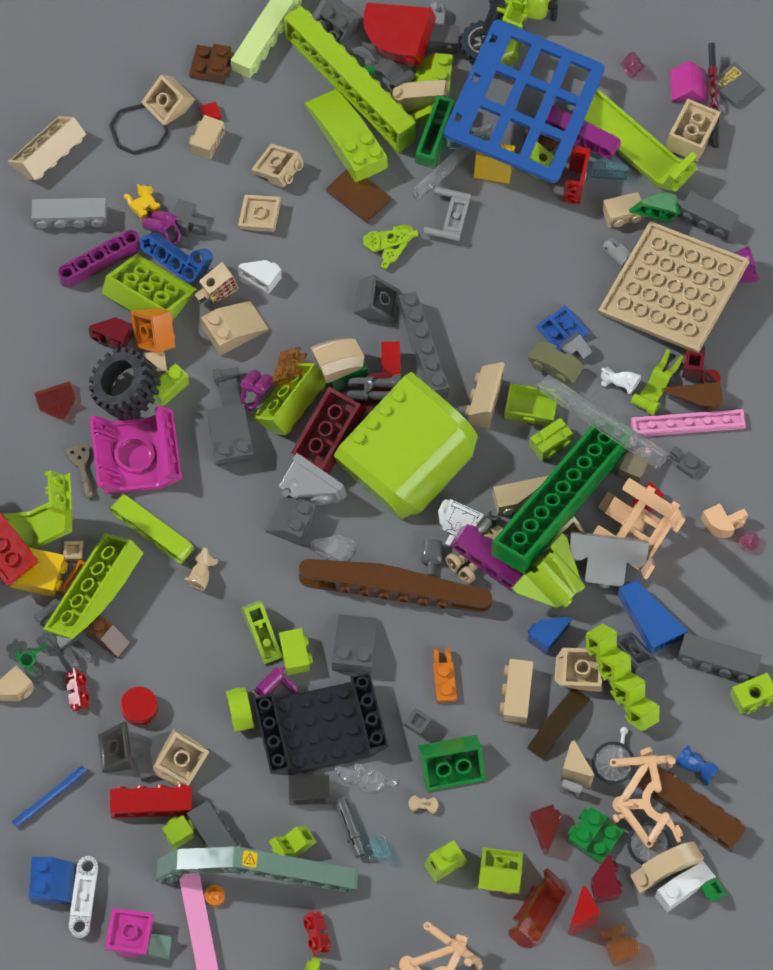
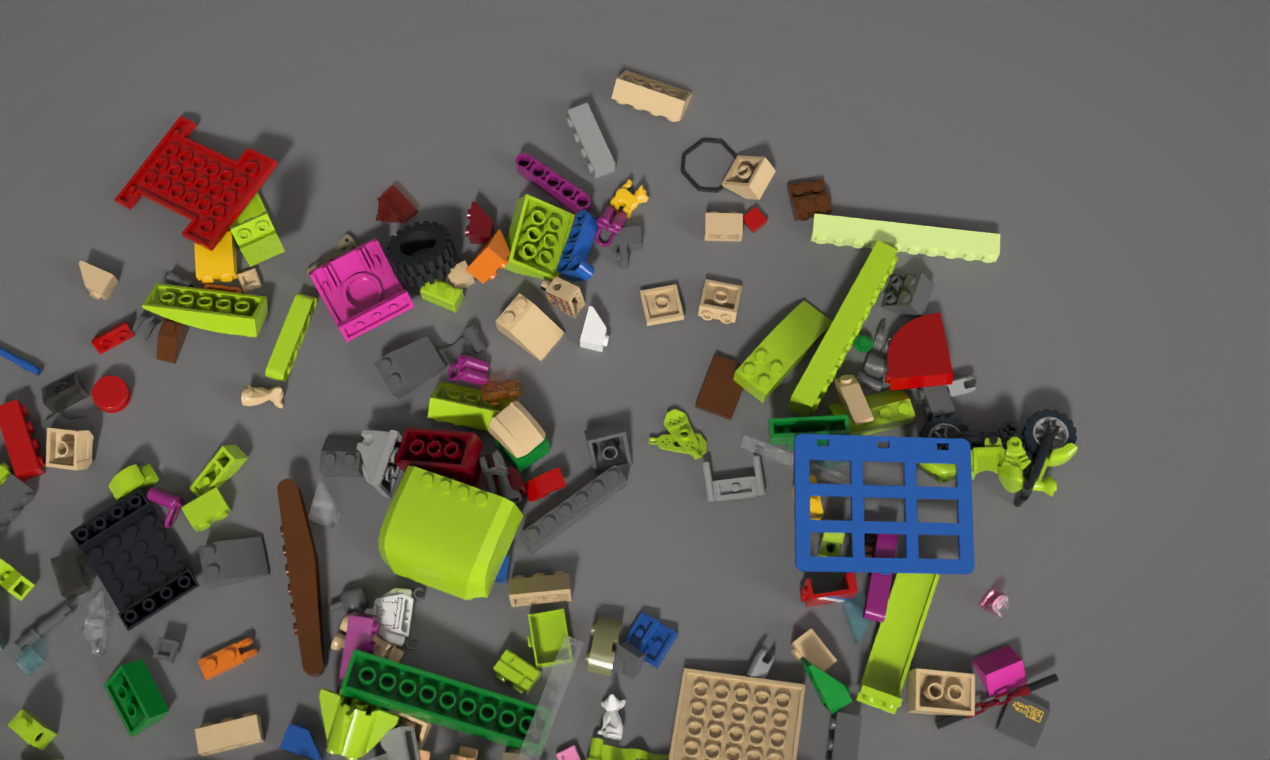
camera: 70 degrees right, 5 degrees up
(27, 659) = (115, 279): dark grey plant -> none
(416, 803) = (90, 693): tan piece -> none
(513, 496) = (440, 658): tan slope -> none

